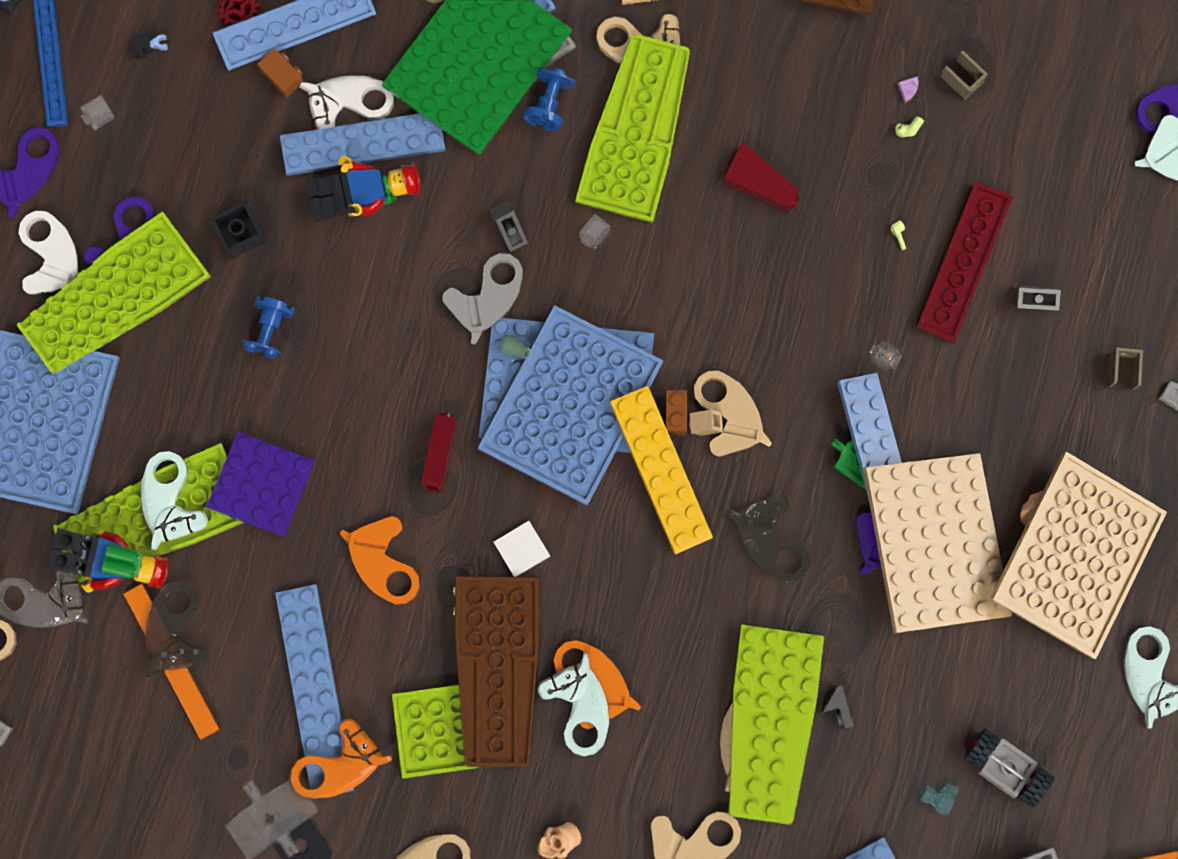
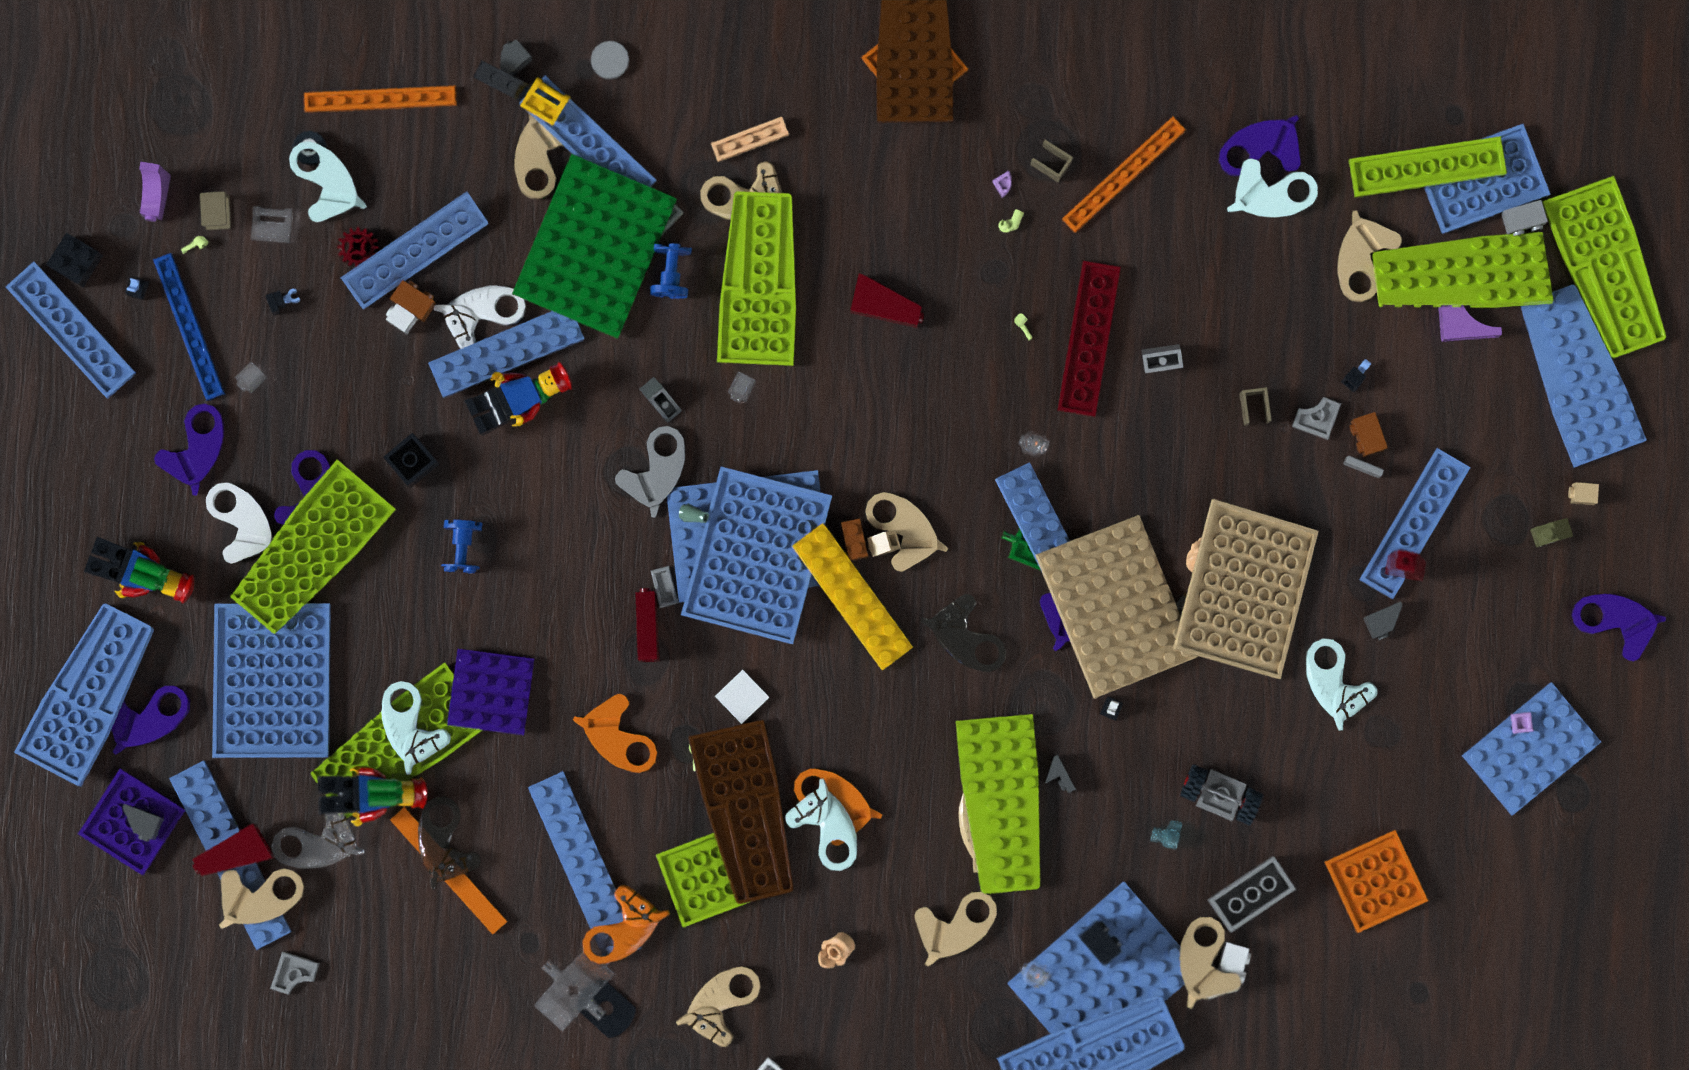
camera: 10 degrees left, 5 degrees up
(264, 87) = (401, 318): none -> white brick
(467, 417) = (664, 587): none -> light grey tile
(908, 649) = (1111, 708): none -> black piece
(1034, 106) = (1124, 174): none -> orange tile

